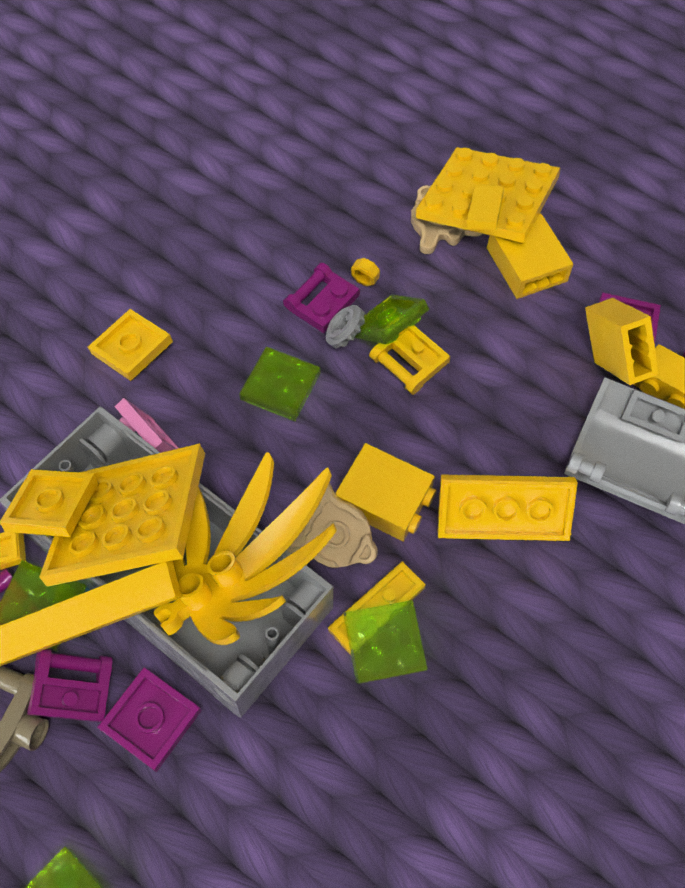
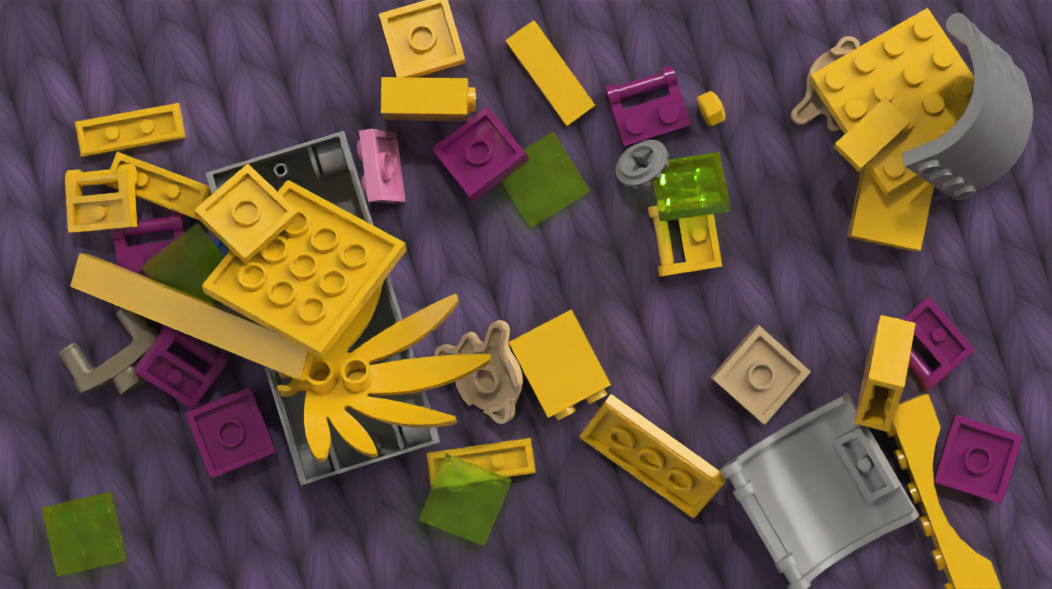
camera: 35 degrees right, 25 degrees up
(157, 368) = (427, 99): none -> yellow brick
(222, 386) = (480, 154): none -> magenta plate
(239, 316) = (550, 73): none -> yellow tile
(533, 411) = (760, 374): none -> tan plate
(552, 169) = (990, 130): none -> light grey hinge

